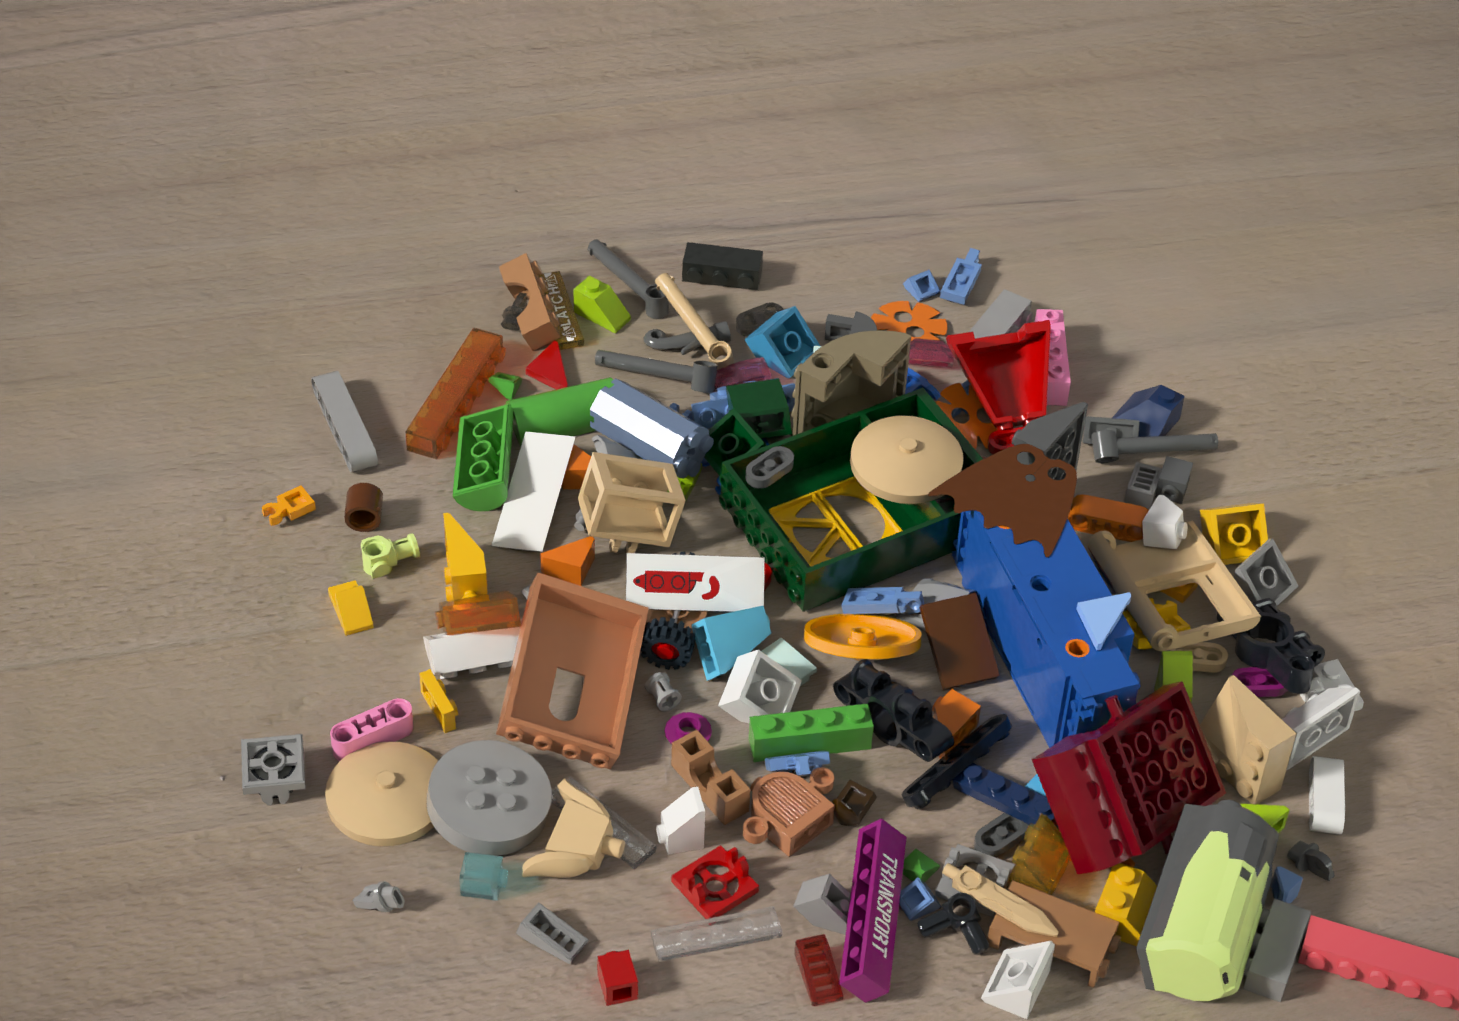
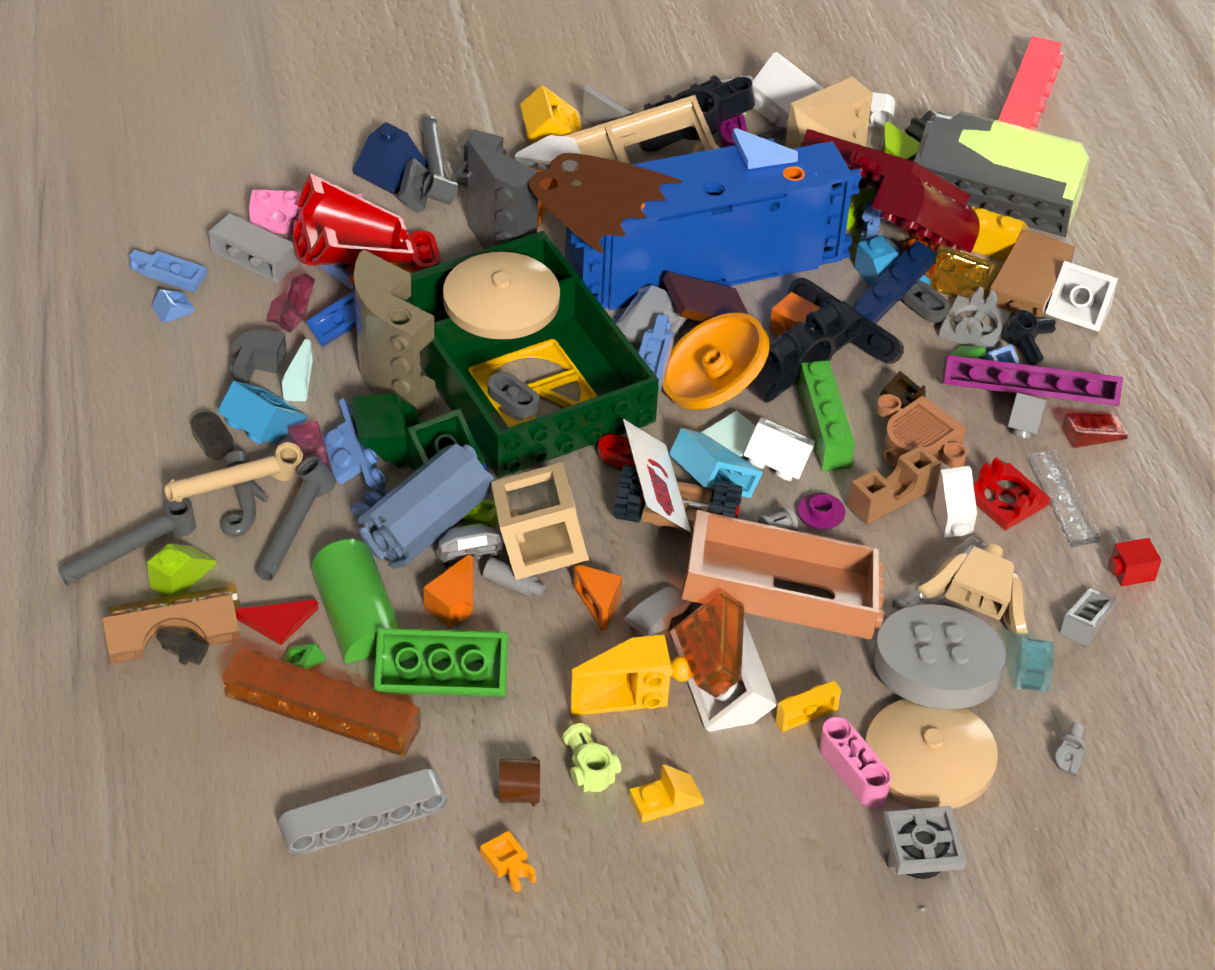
camera: 90 degrees left, 0 degrees up
(533, 491) = (531, 632): white sticker -> none
(722, 266) = (125, 458): pearl dark grey brick -> none
(801, 763) = (865, 422): medium blue hinge -> none
(920, 317) = (235, 302): orange piece -> none
(1000, 900) = (1015, 296): tan piece -> none

